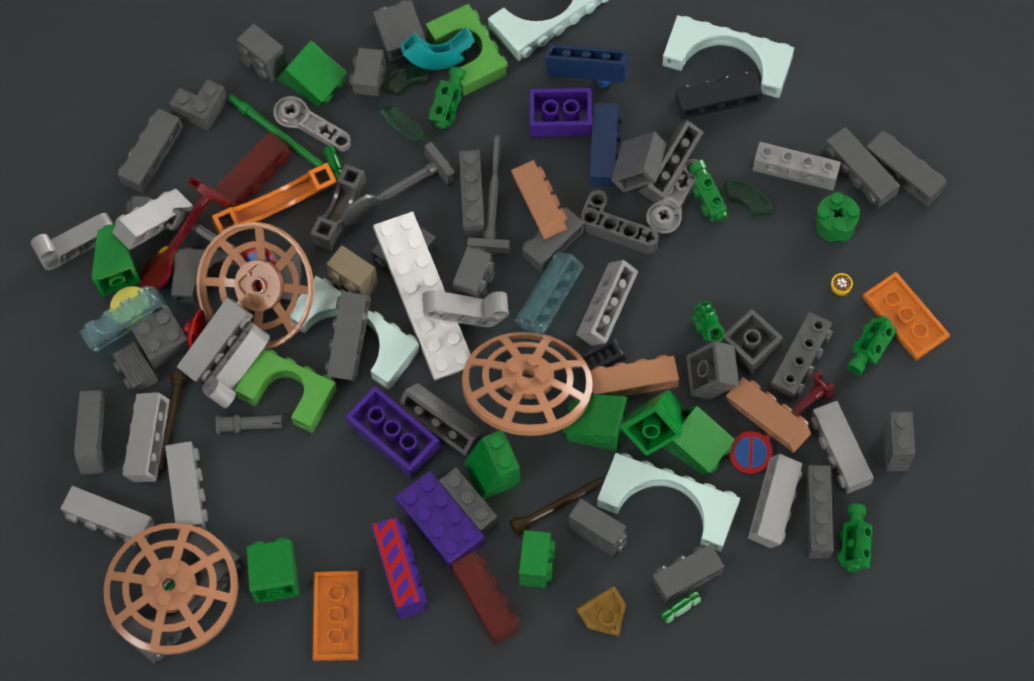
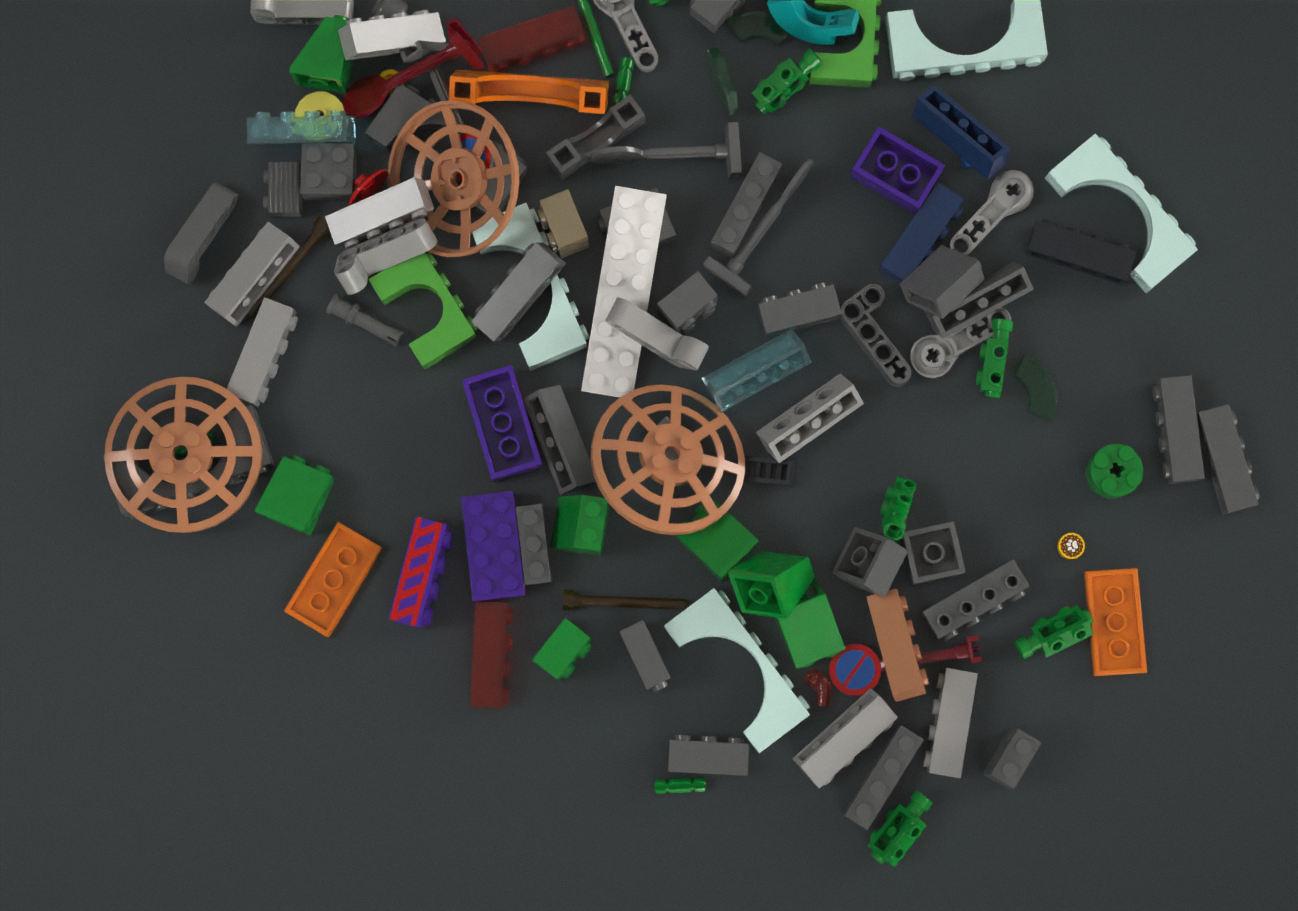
camera: 30 degrees right, 15 degrees up
(104, 515) = (165, 333): light grey brick -> none
(539, 199) = (810, 258): nougat brick -> none
(604, 612) = (598, 743): pearl gold plate -> none
(635, 377) = (785, 516): nougat brick -> none
(643, 98) = (997, 207): none -> light grey beam
(734, 477) = (820, 685): none -> clear red arm
(796, 166) = (1110, 386): light grey brick -> none

